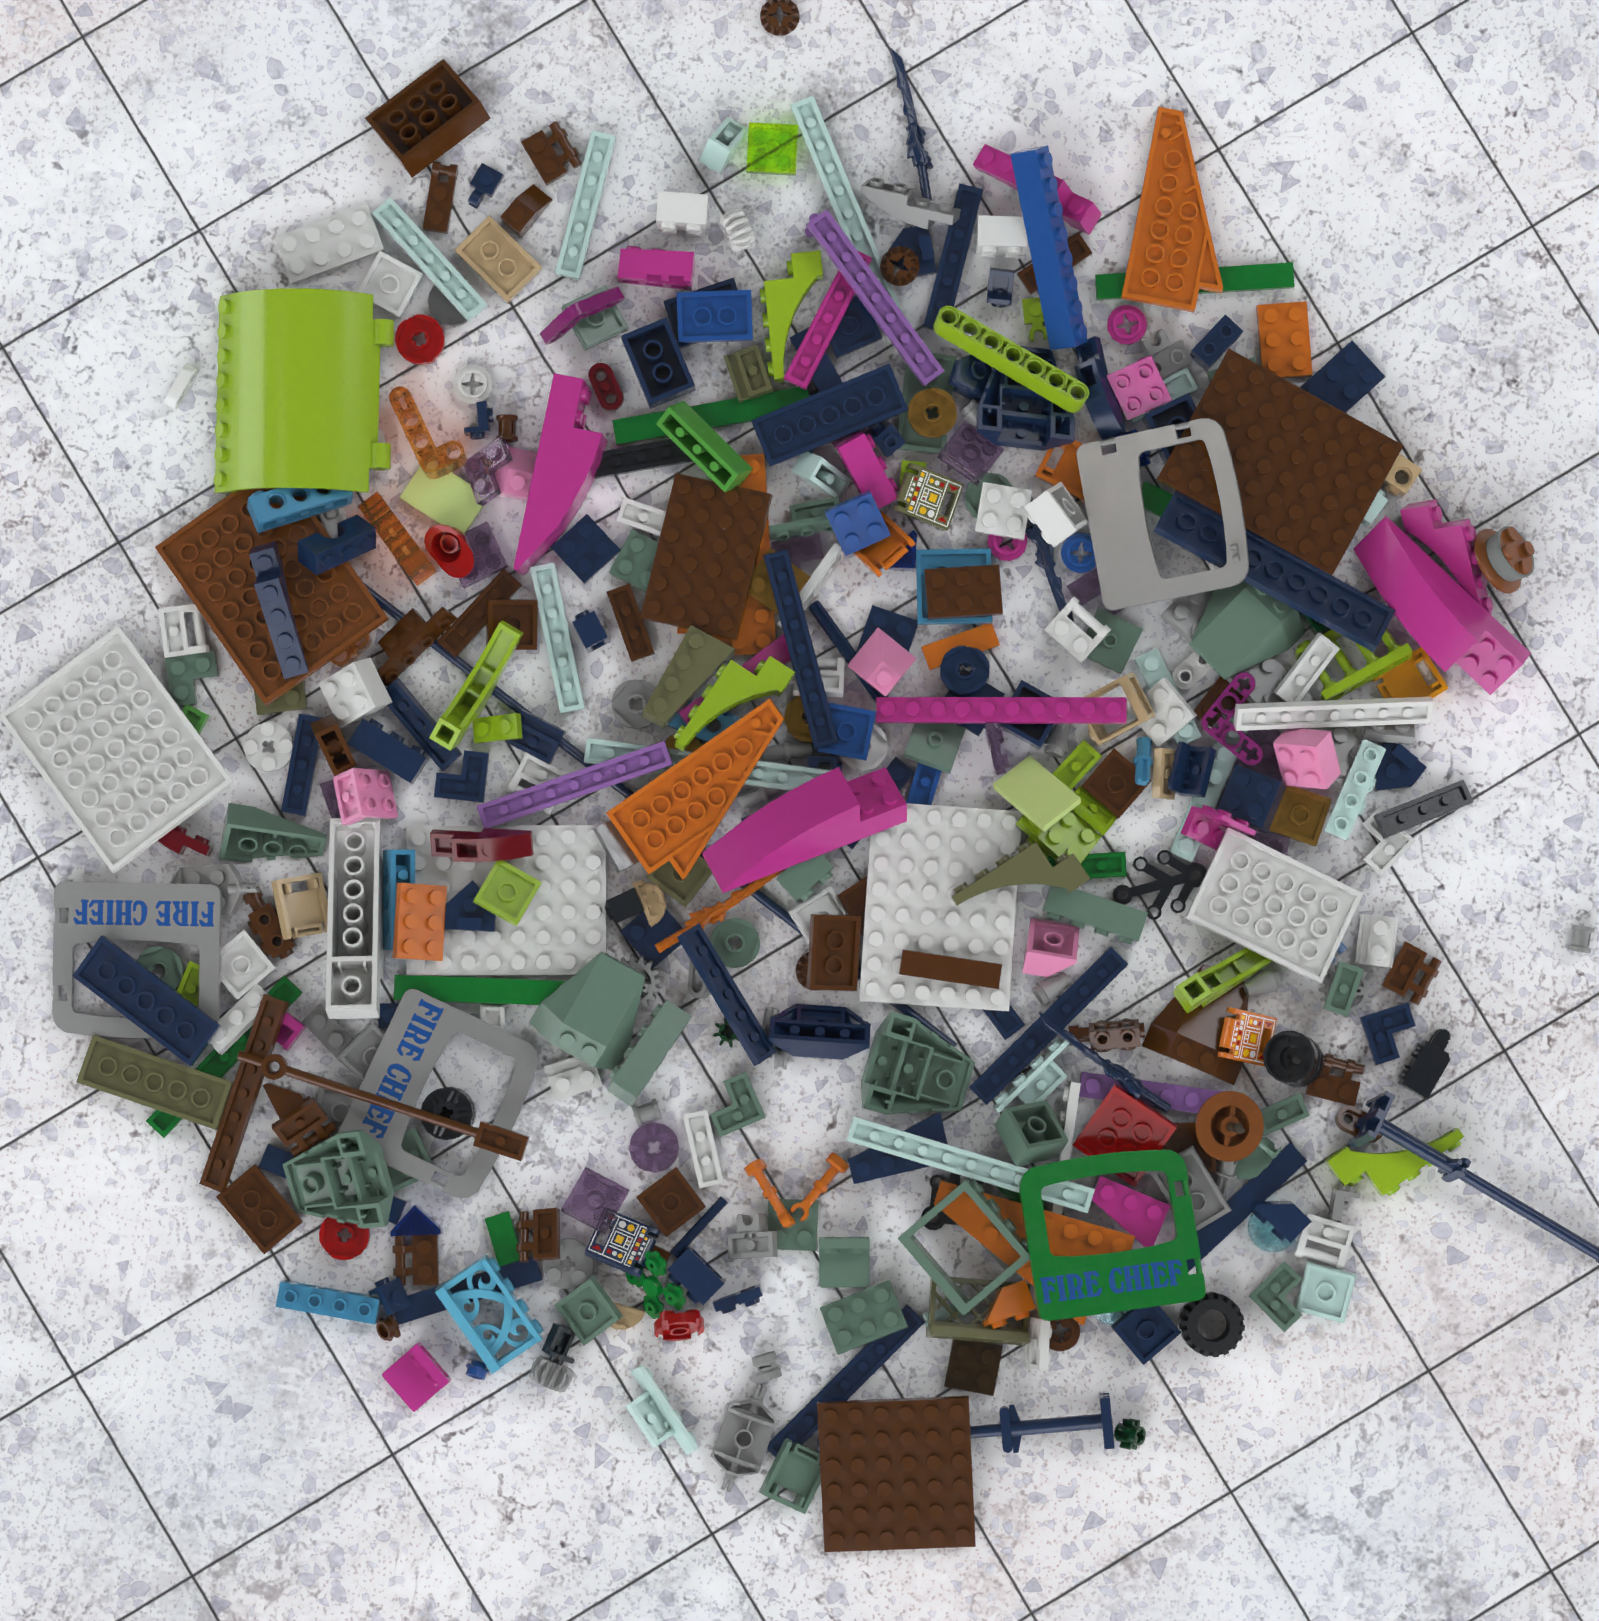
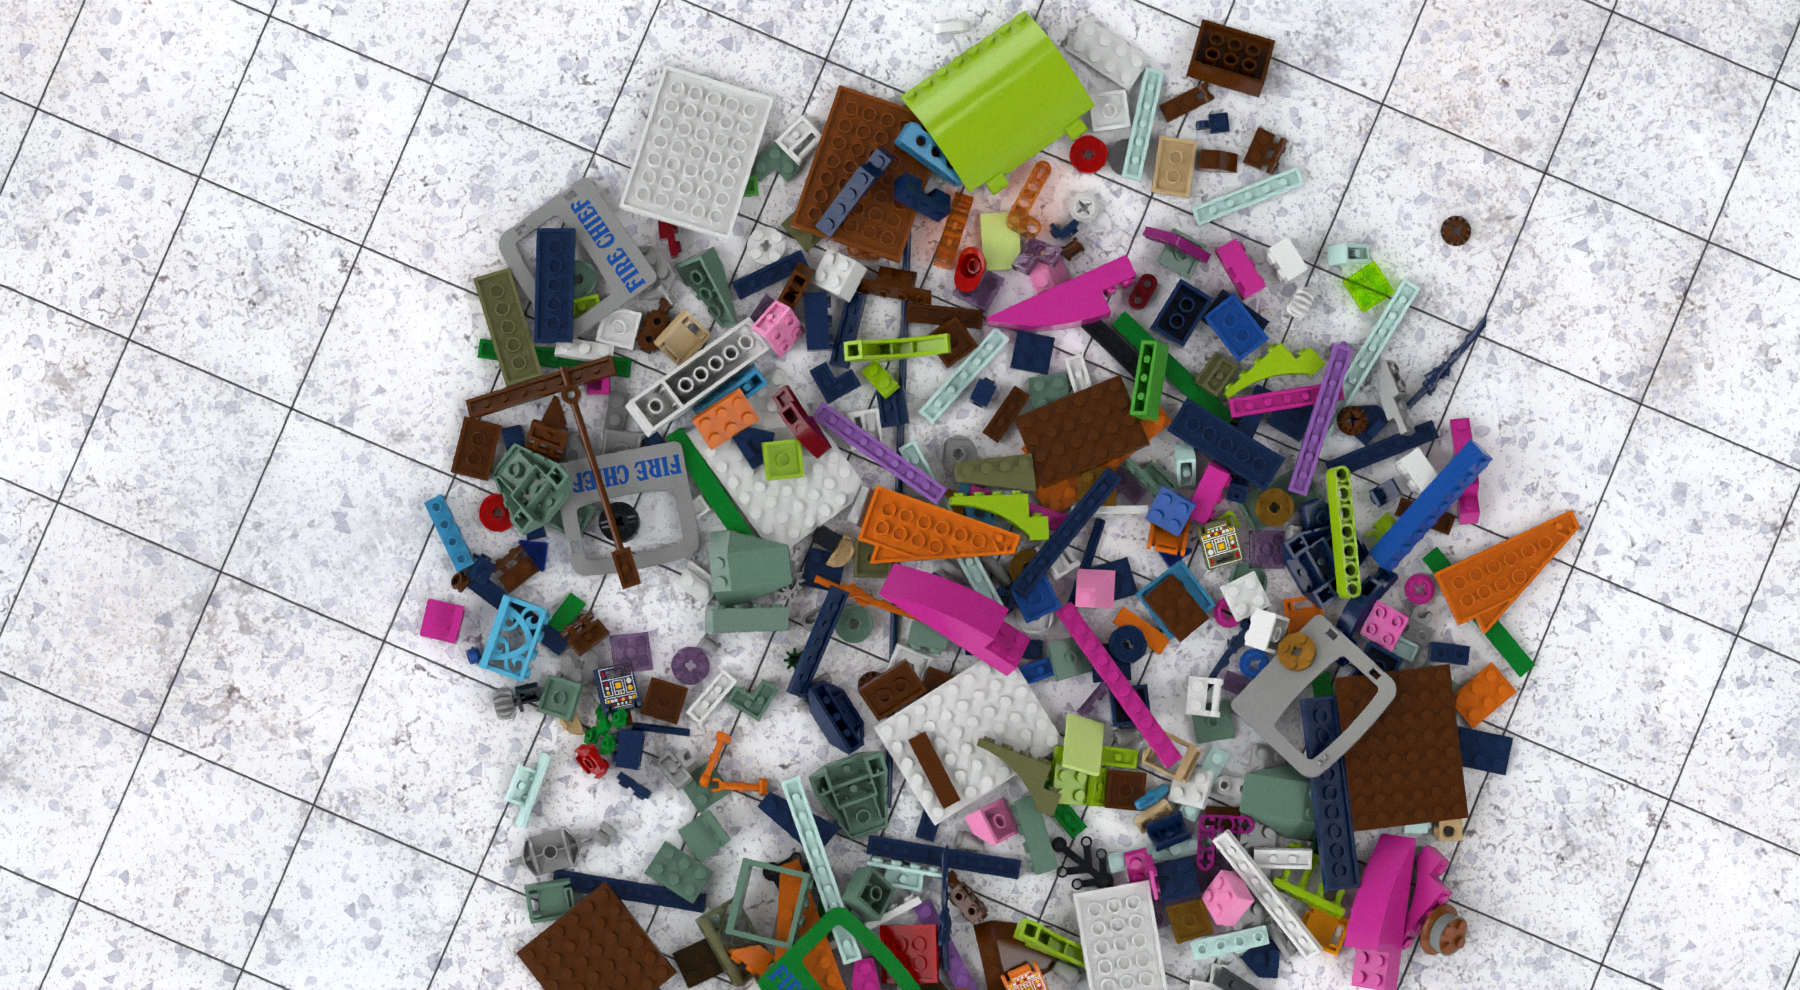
camera: 50 degrees right, 0 degrees up
(1112, 491) = (1286, 647): none -> pearl gold plate

